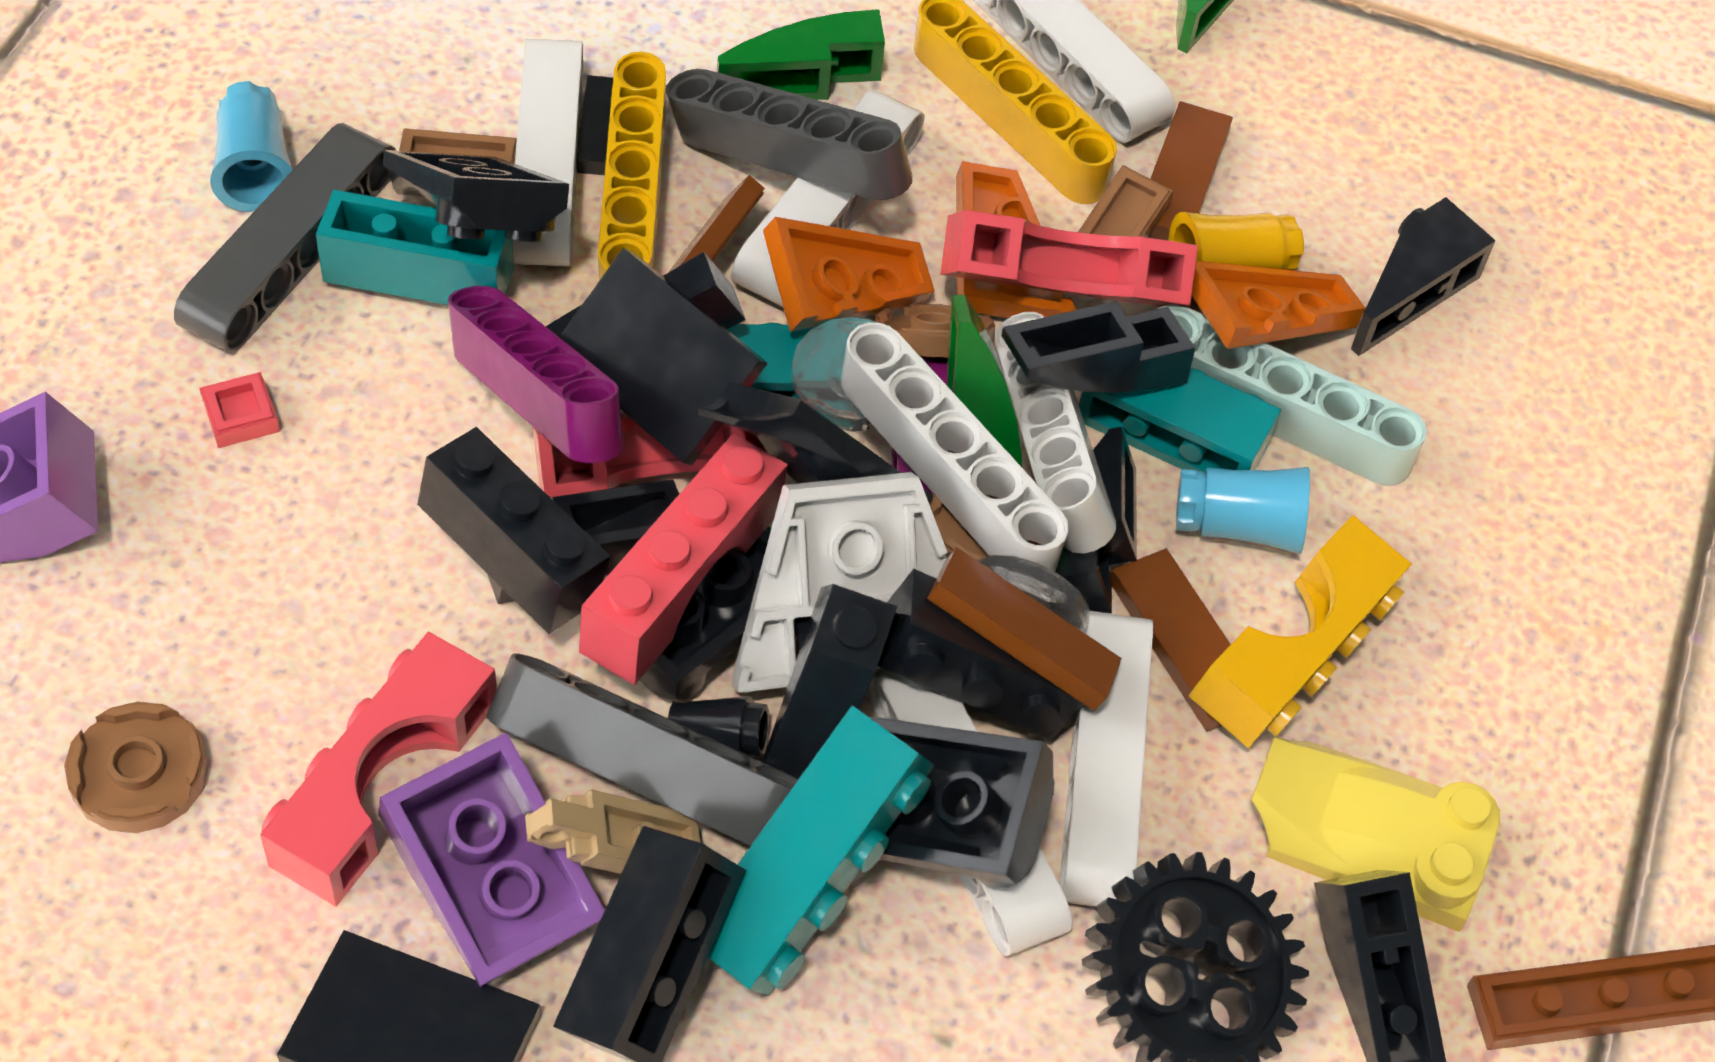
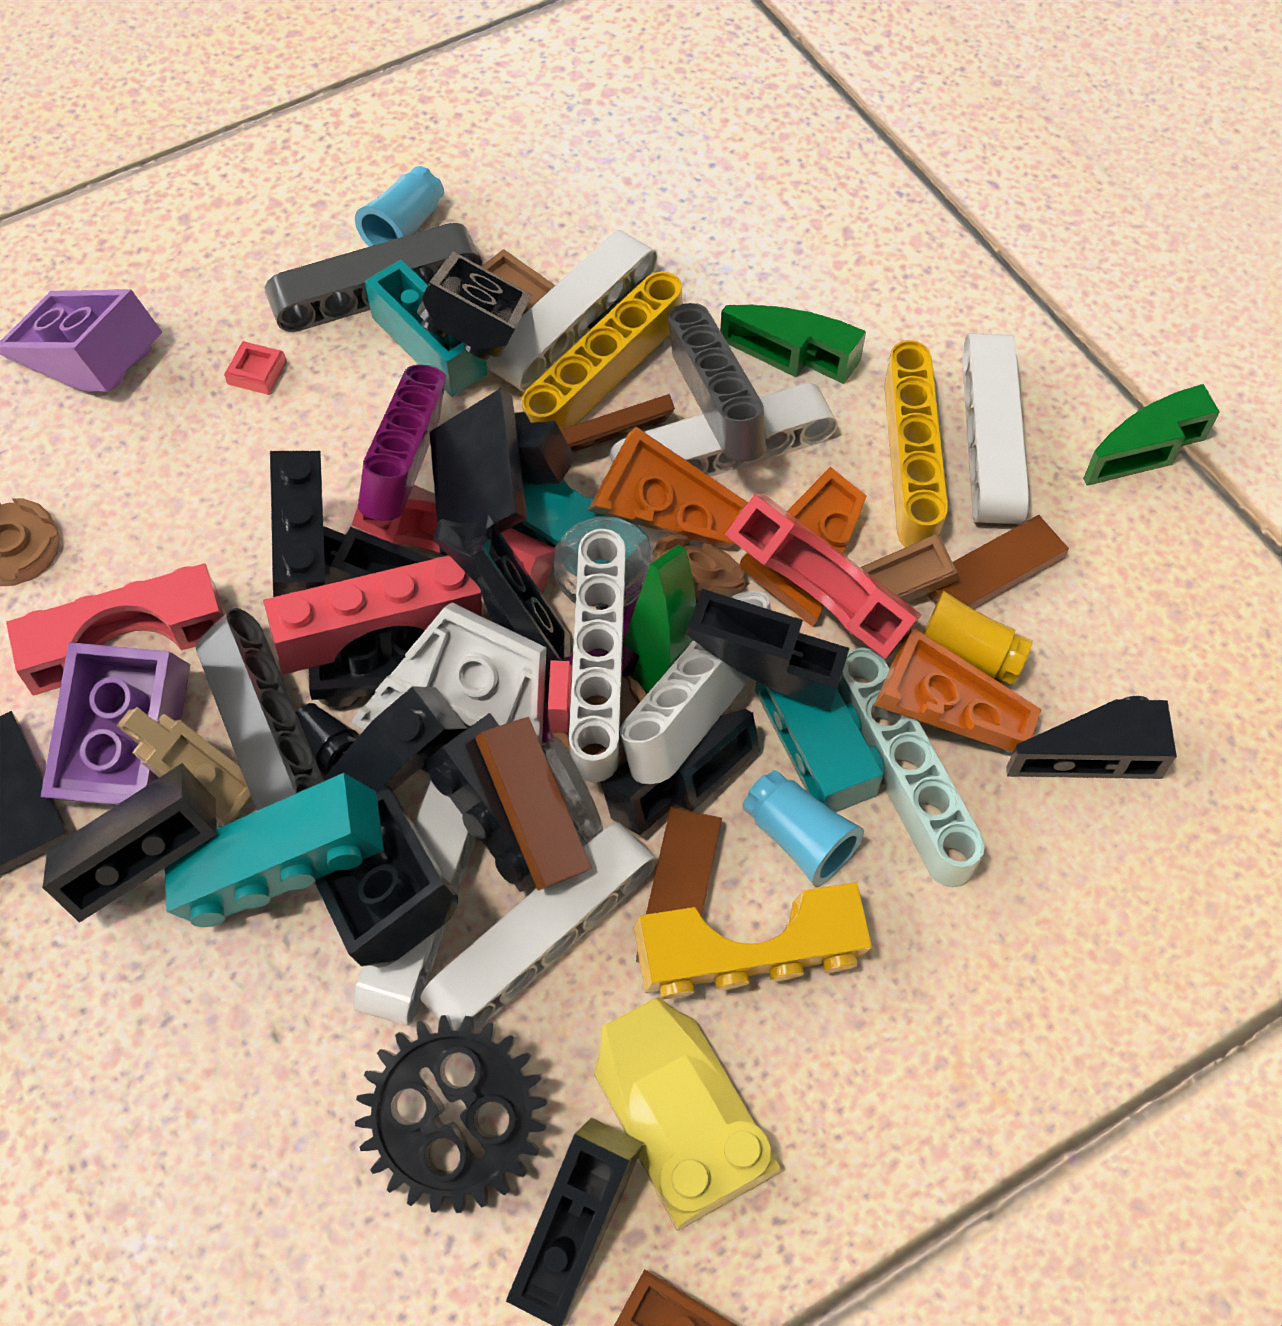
camera: 45 degrees right, 5 degrees up
(957, 513) = (560, 696): none -> coral tile

